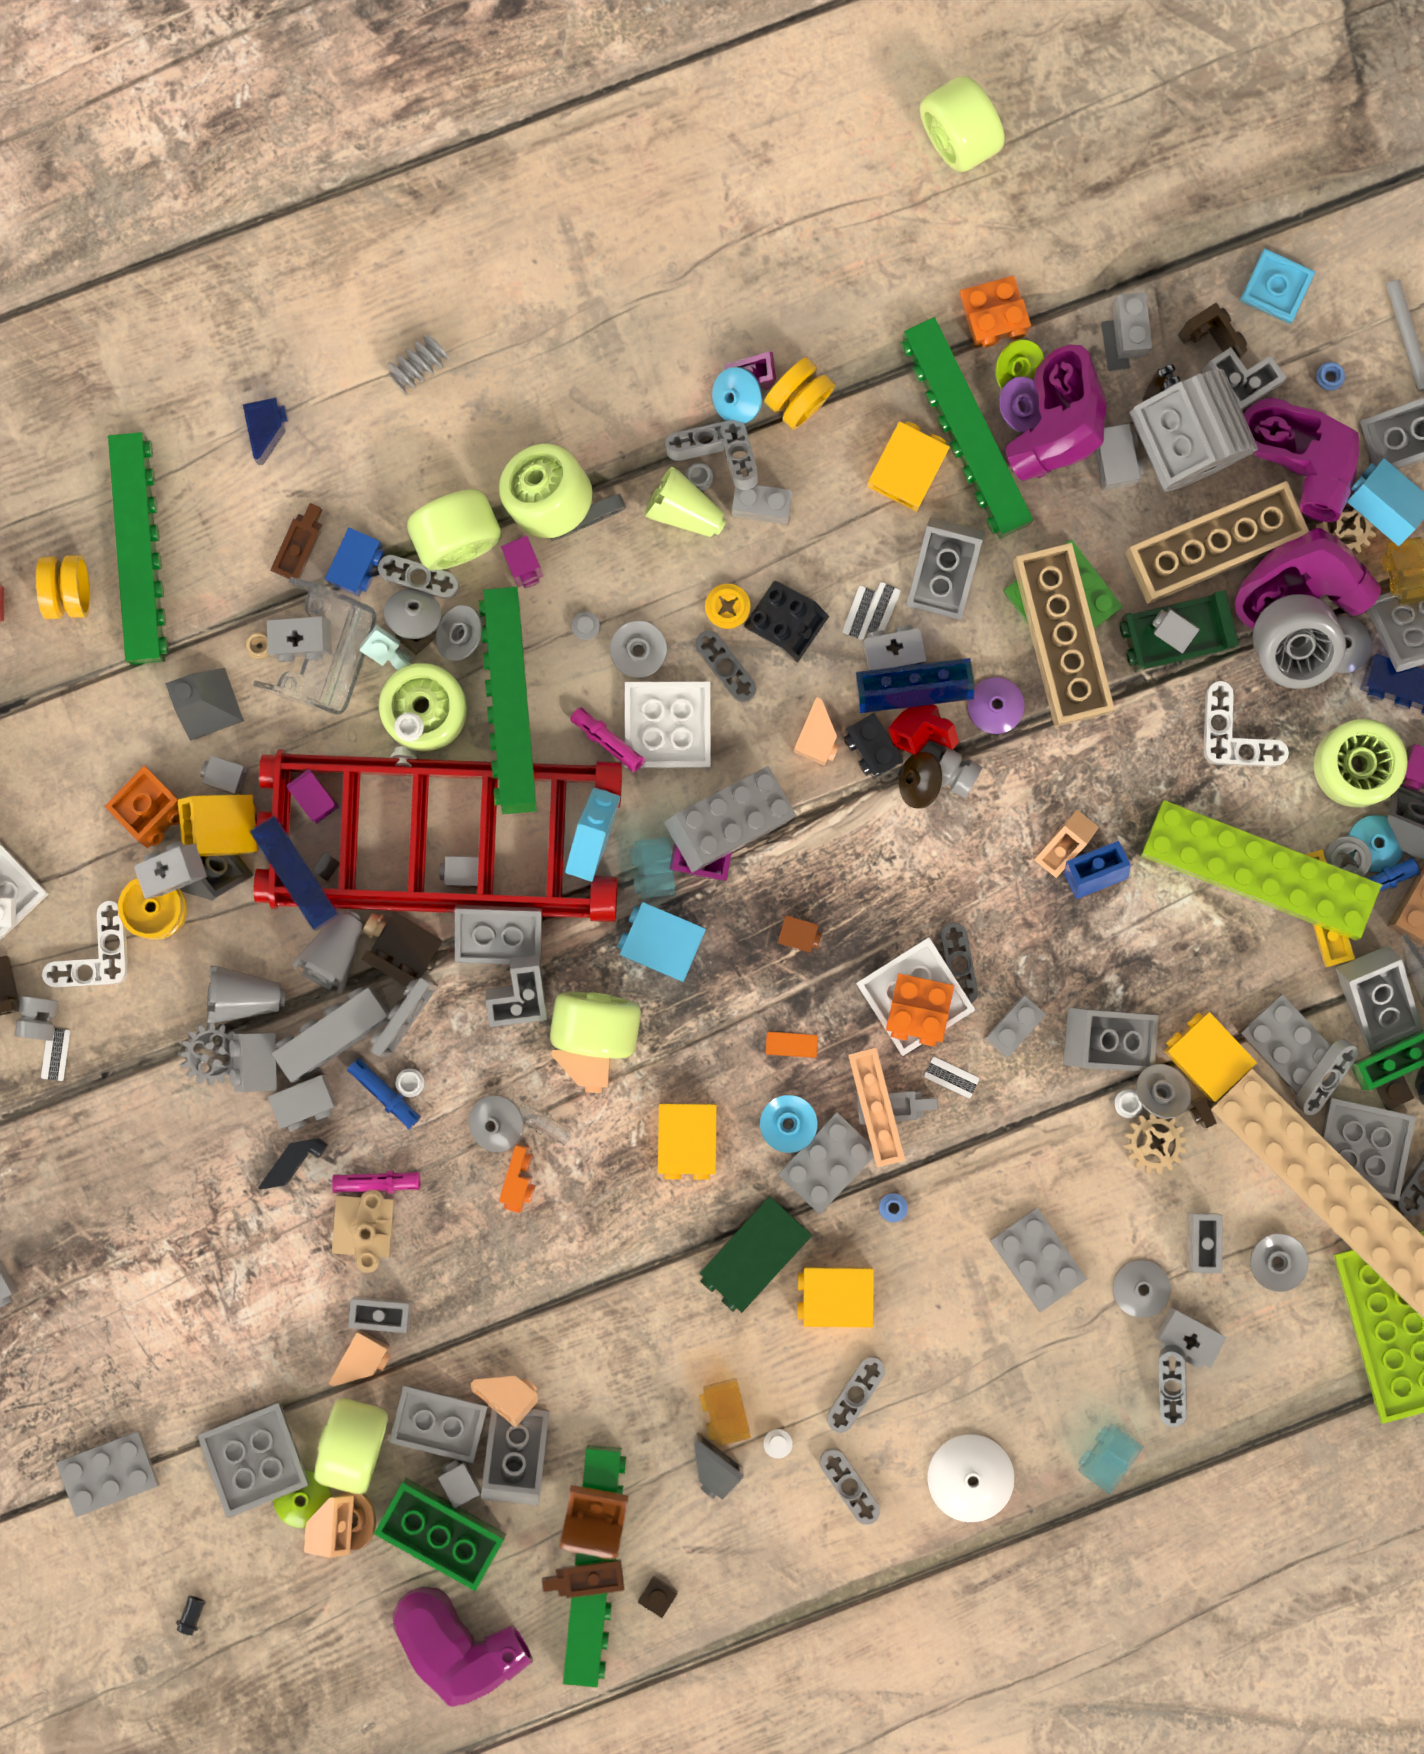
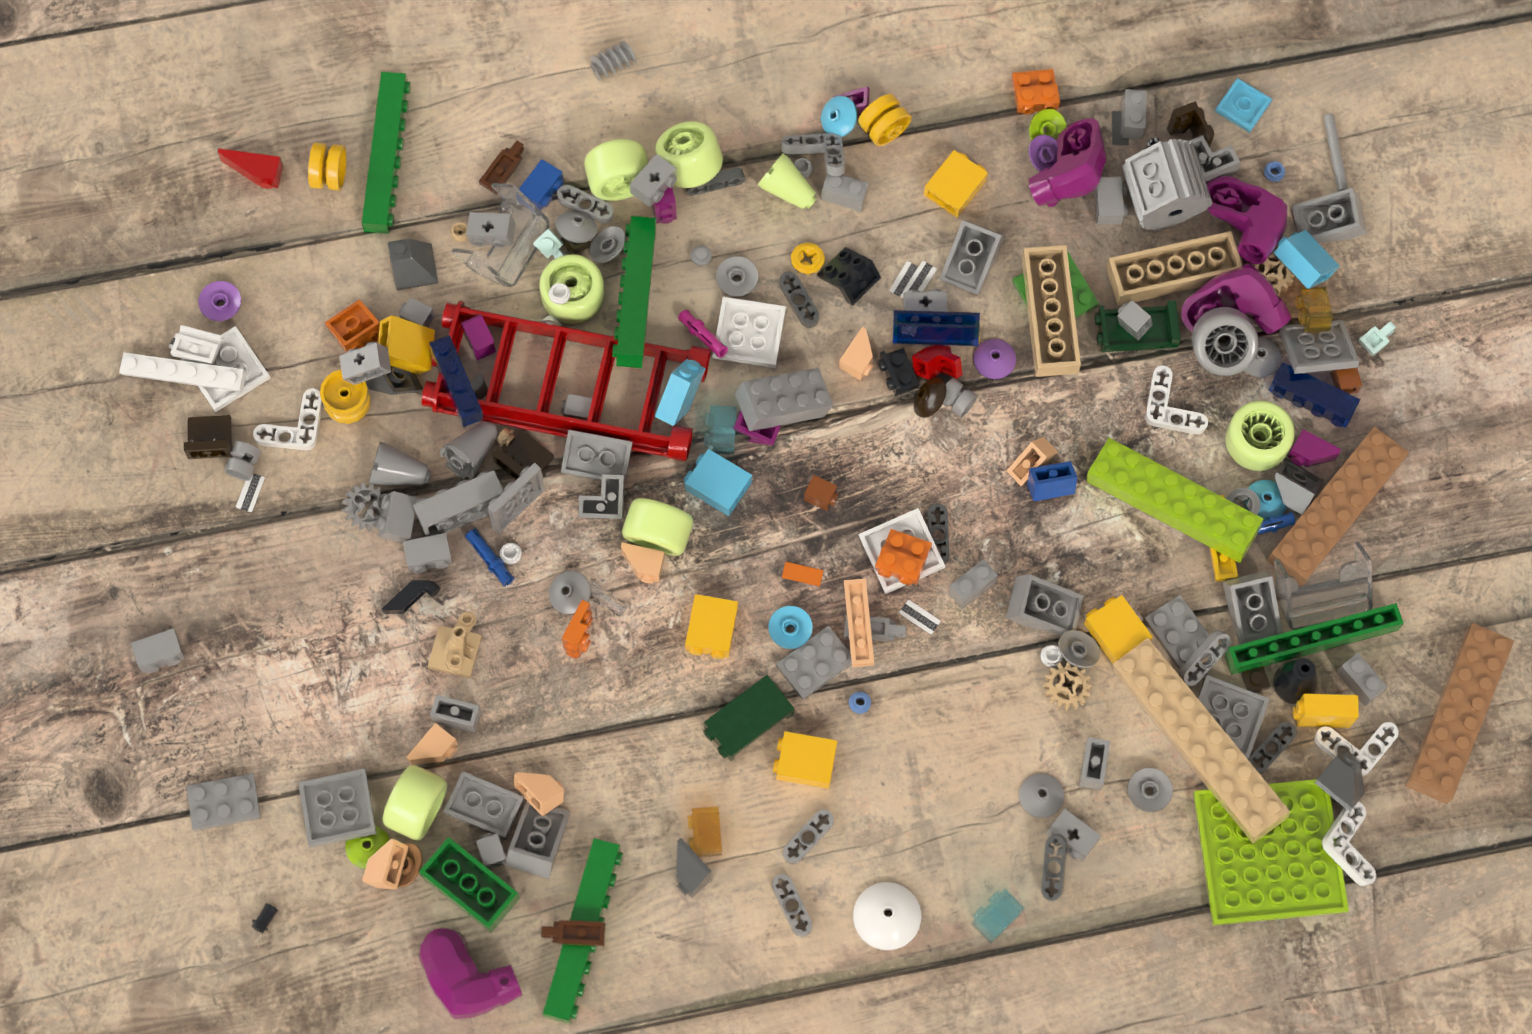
camera: 10 degrees right, 15 degrees down
(265, 426) = (494, 85): clear blue slope -> none
(380, 1182) = (482, 620): dark pink pin -> none
(506, 529) = (656, 170): none -> light grey brick
(594, 1522) = (590, 885): dark orange bracket -> none
(657, 1597) = (628, 965): dark brown plate -> none
(777, 1443) = (741, 863): white plate -> none
(966, 427) = (1002, 165): green brick -> none
(1038, 1259) = (964, 760): light grey plate -> none
(1202, 1113) = (1106, 670): dark brown plate -> none

